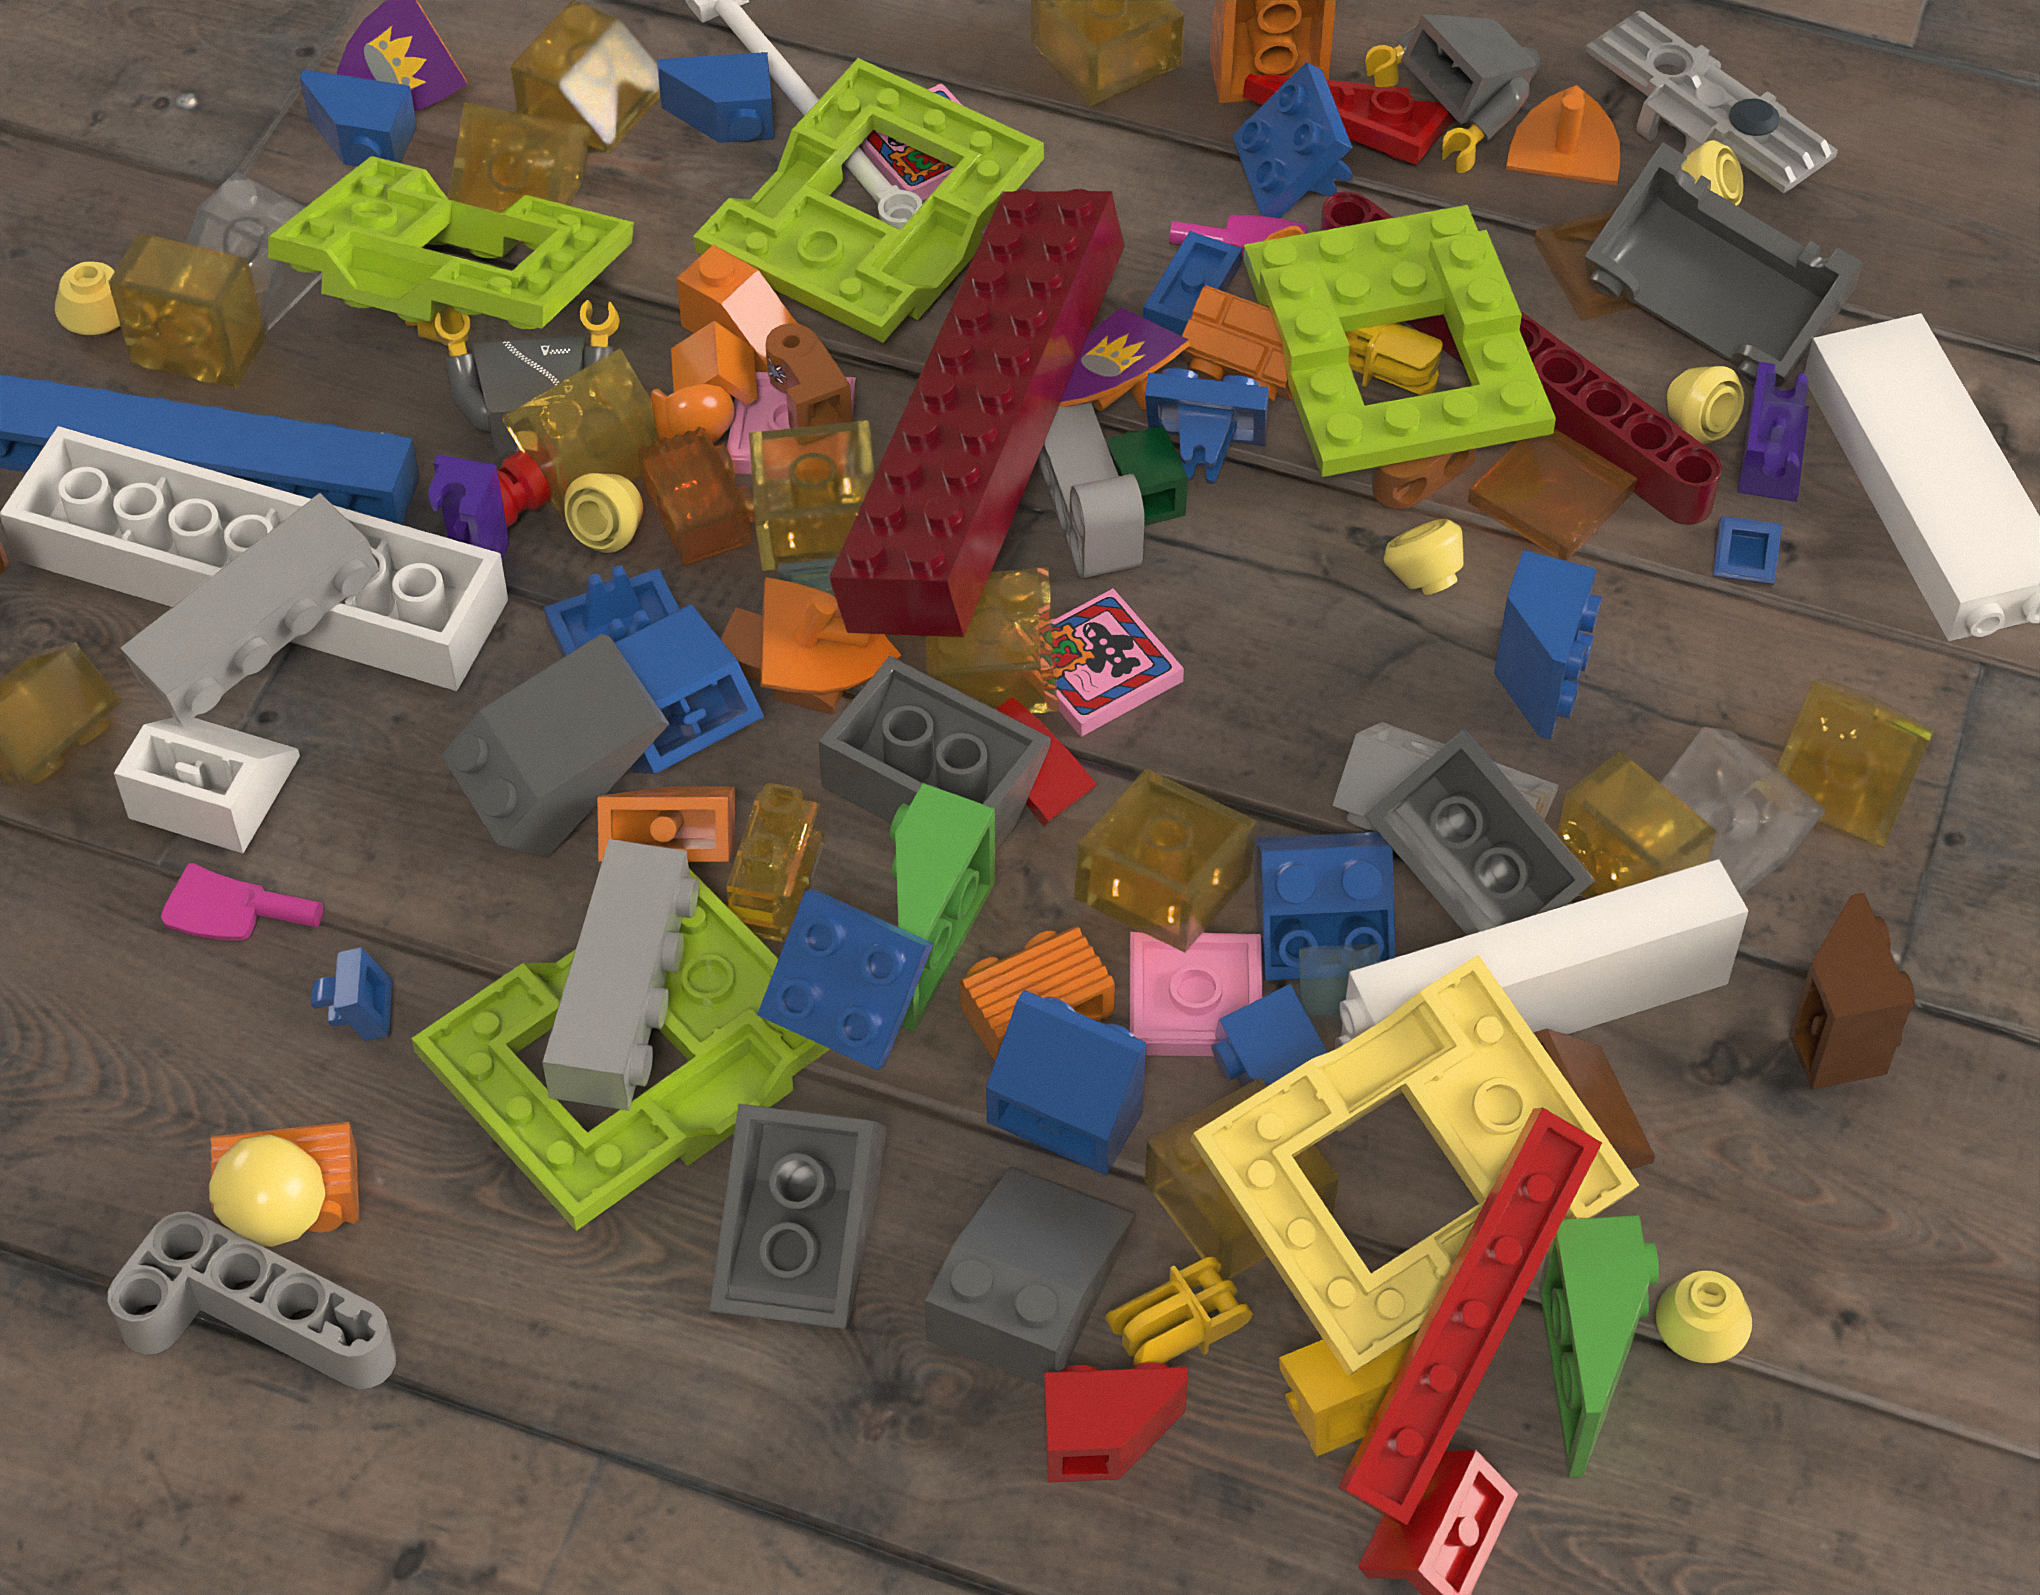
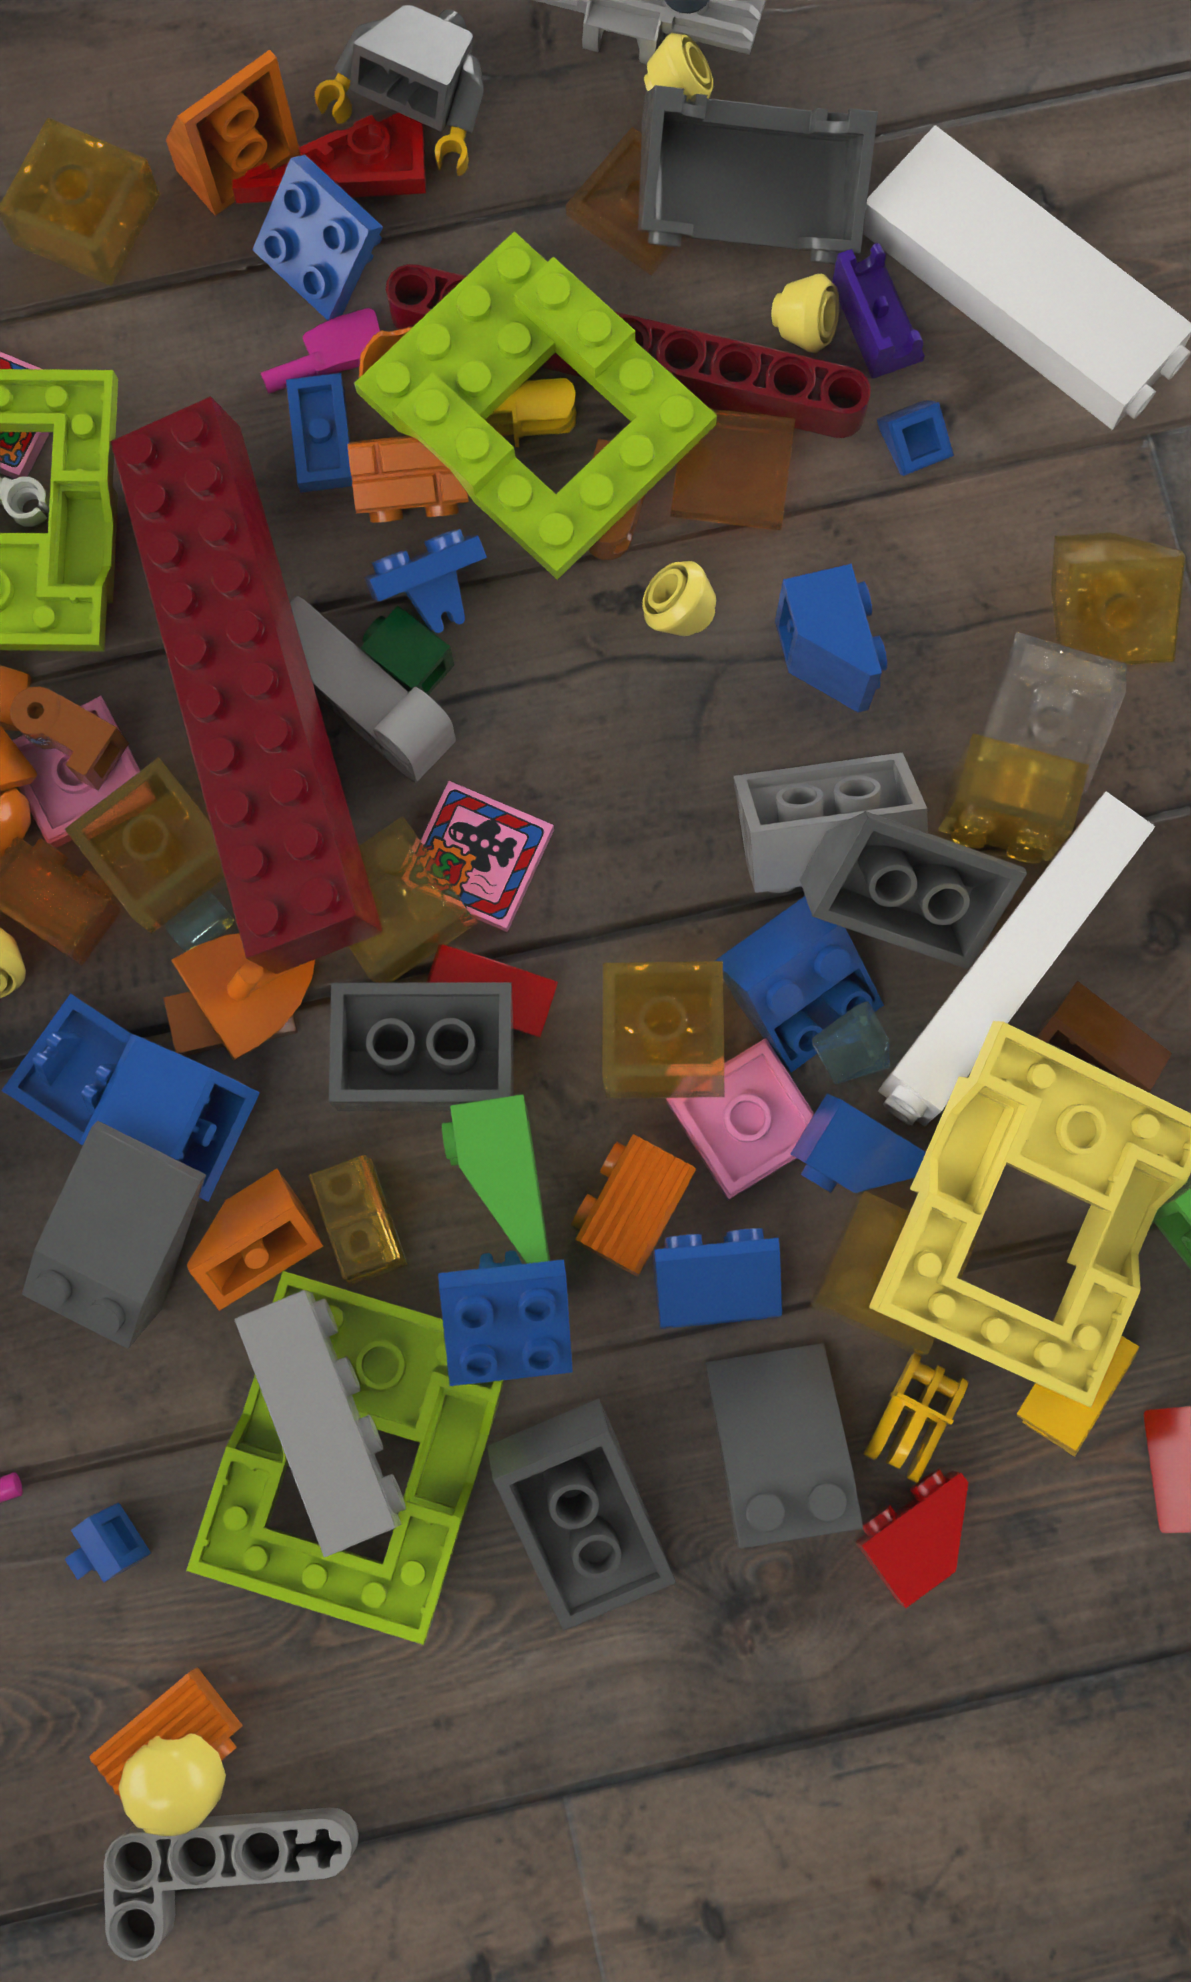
camera: 30 degrees left, 25 degrees up
(1119, 359) = (320, 557): shield -> none
(1470, 1316) = (1156, 1313): red plate -> none
(1567, 140) = (530, 88): orange shield -> none

